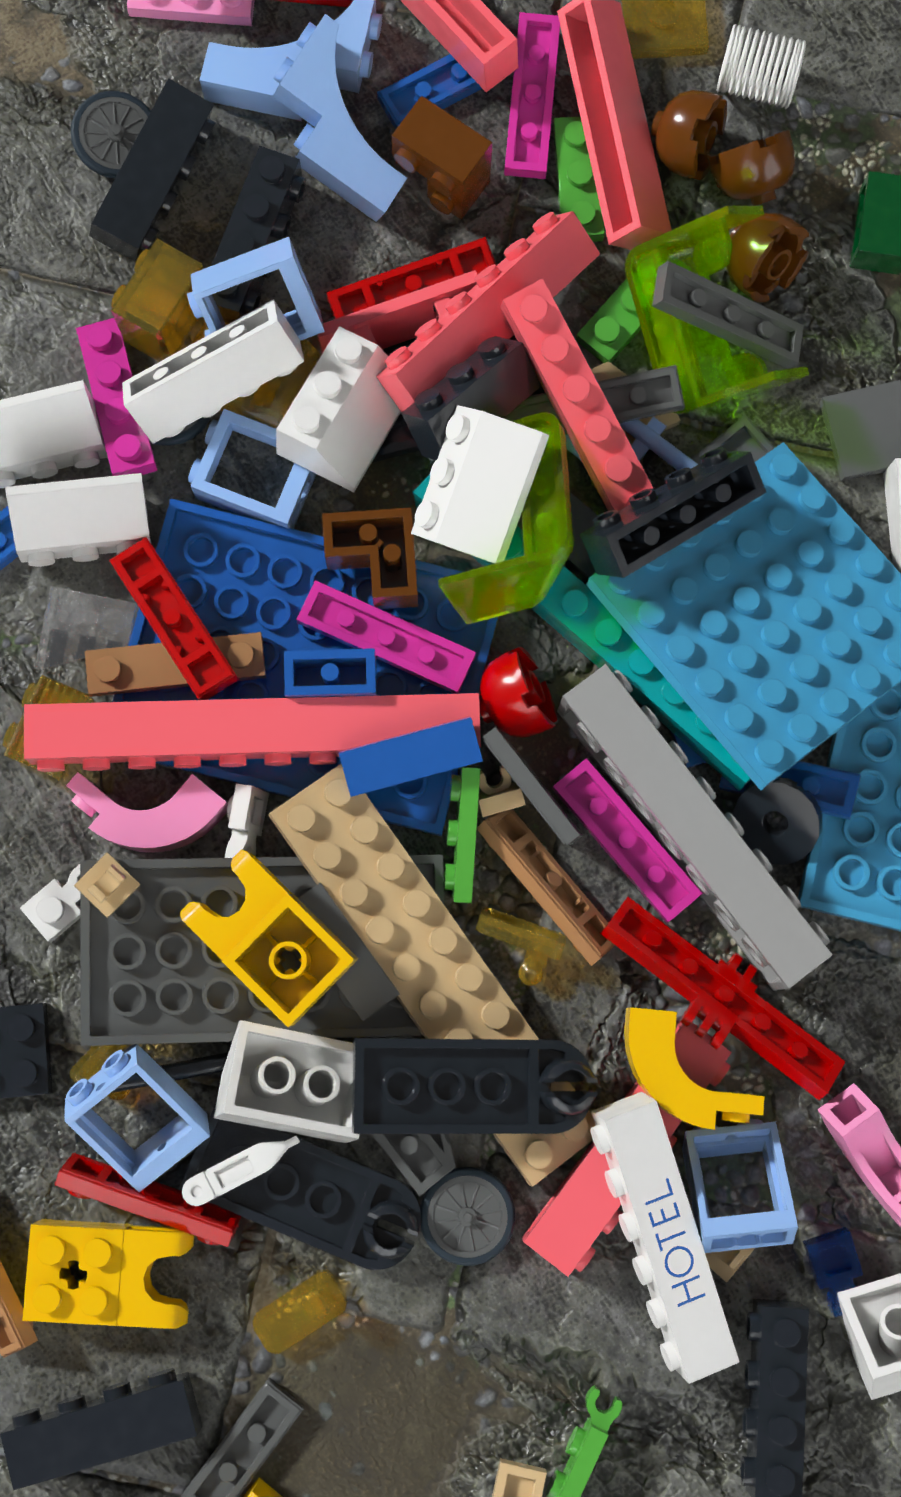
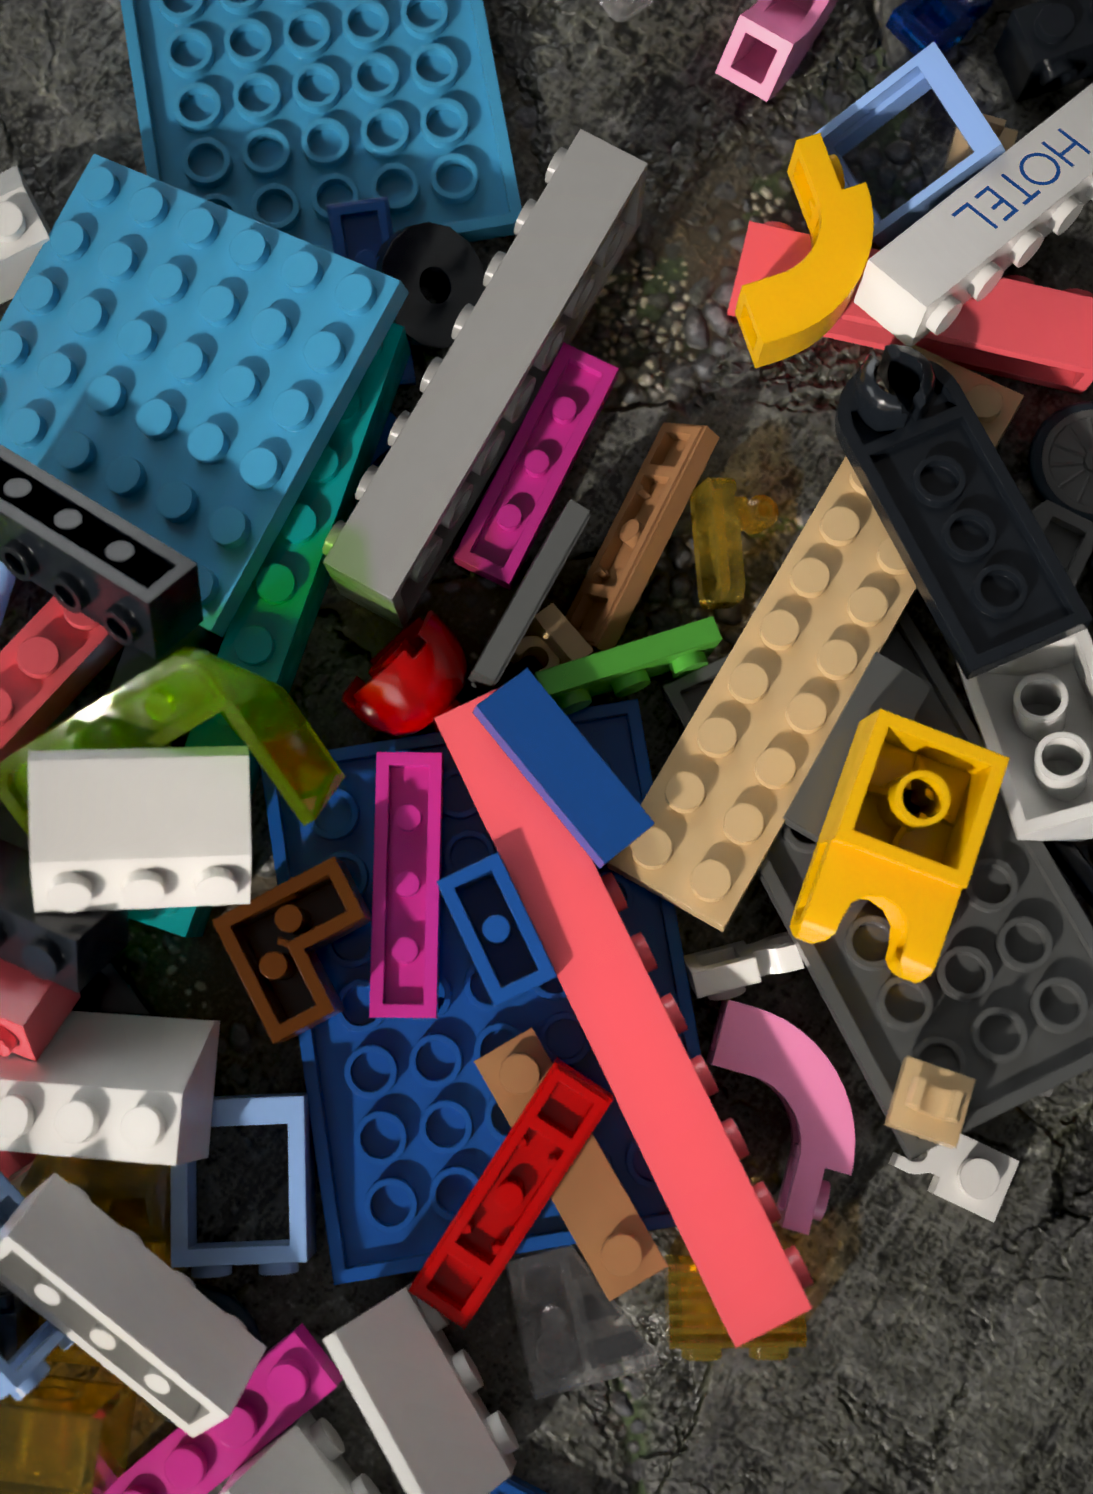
camera: 110 degrees left, 0 degrees up
(723, 999) = (684, 266): red hinge -> none

